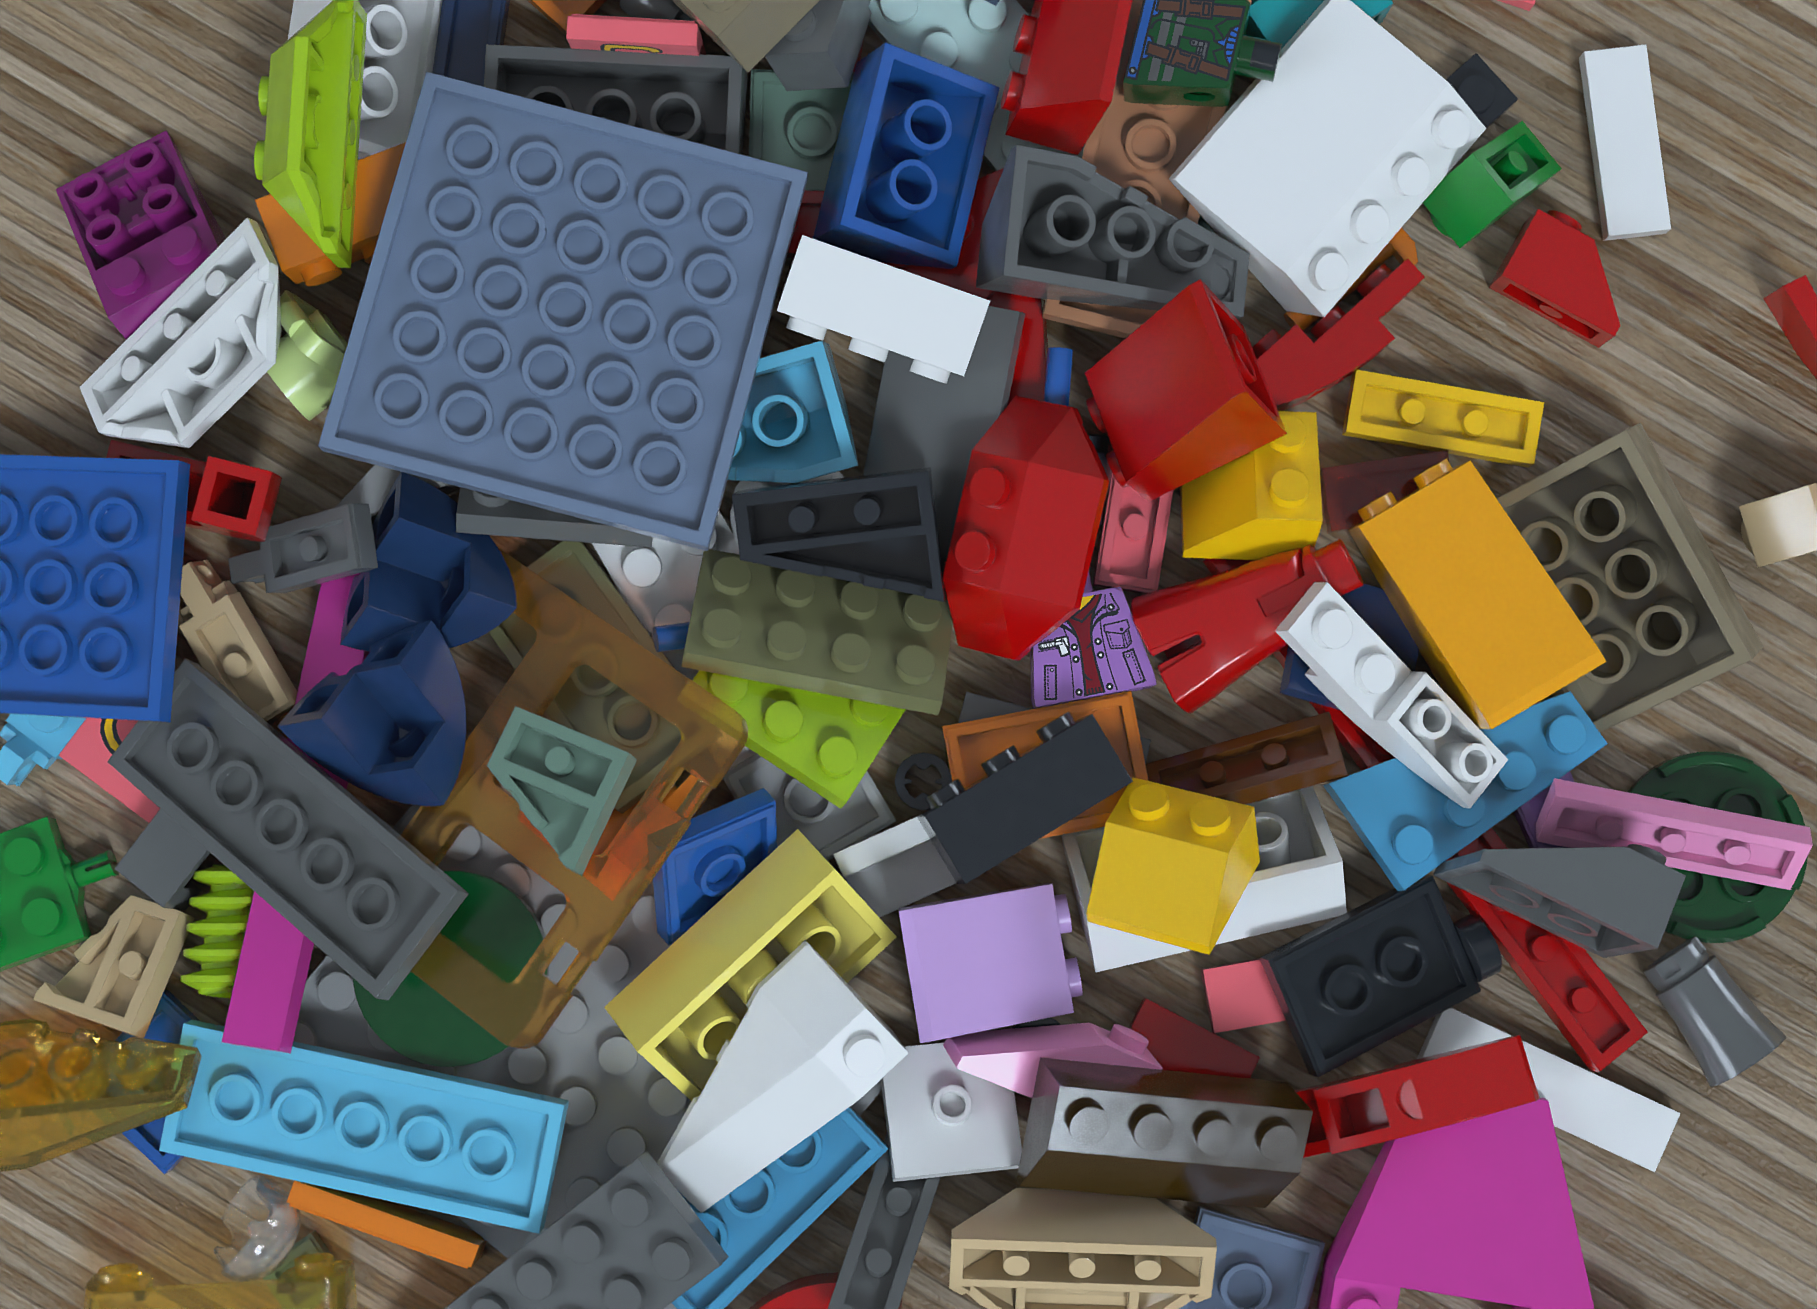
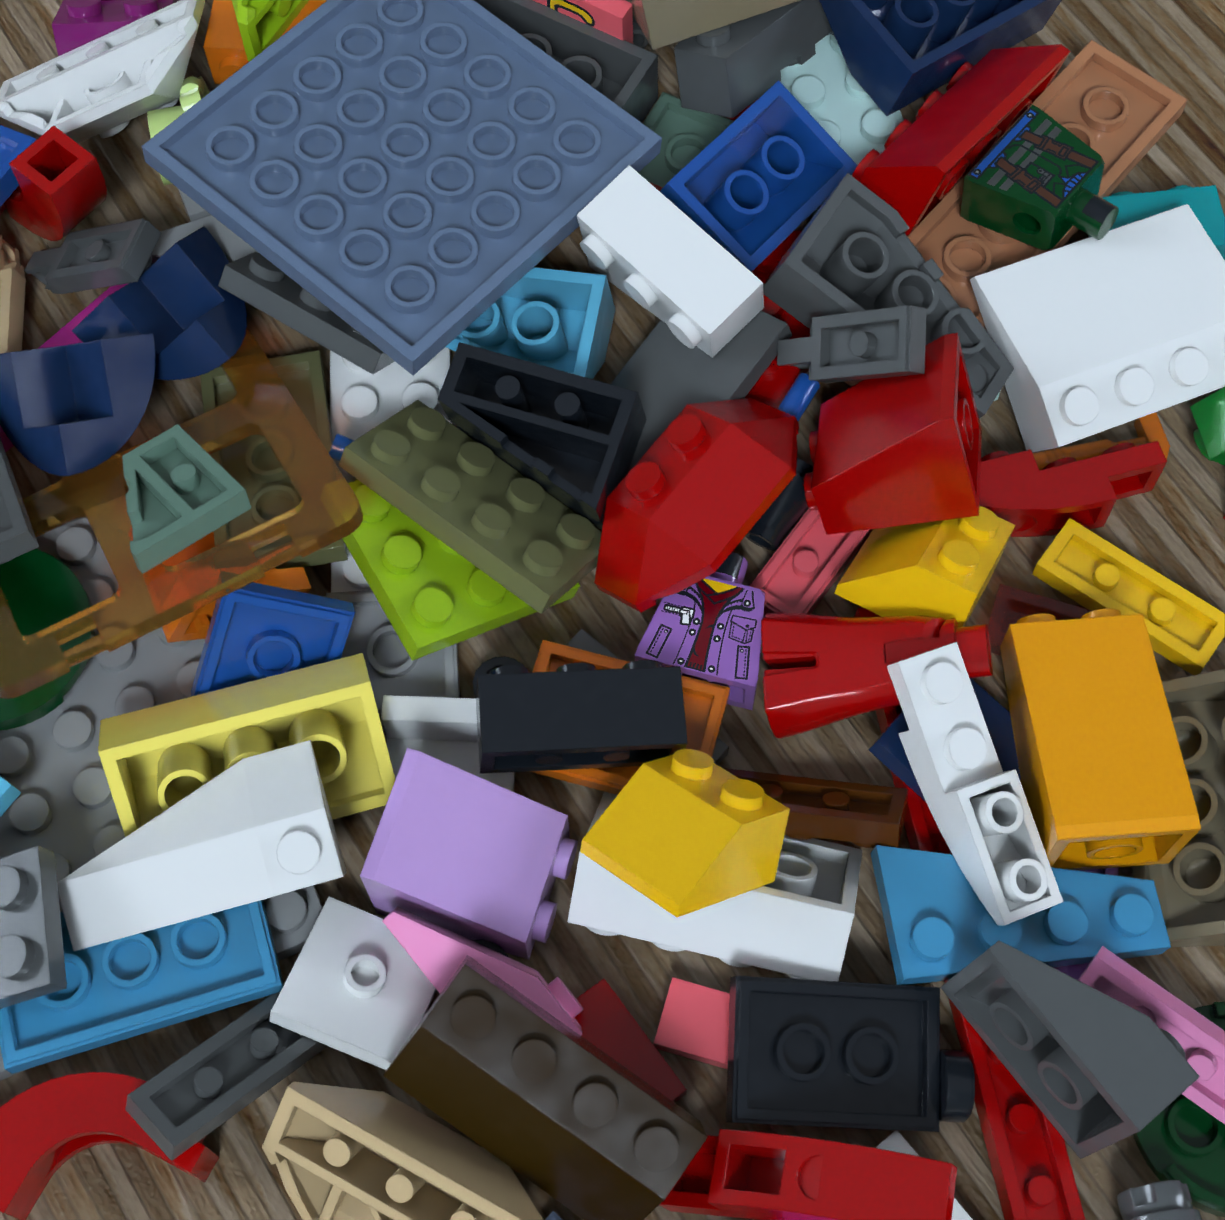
camera: 30 degrees right, 20 degrees down
(1108, 323) = (860, 345): none -> dark grey hinge

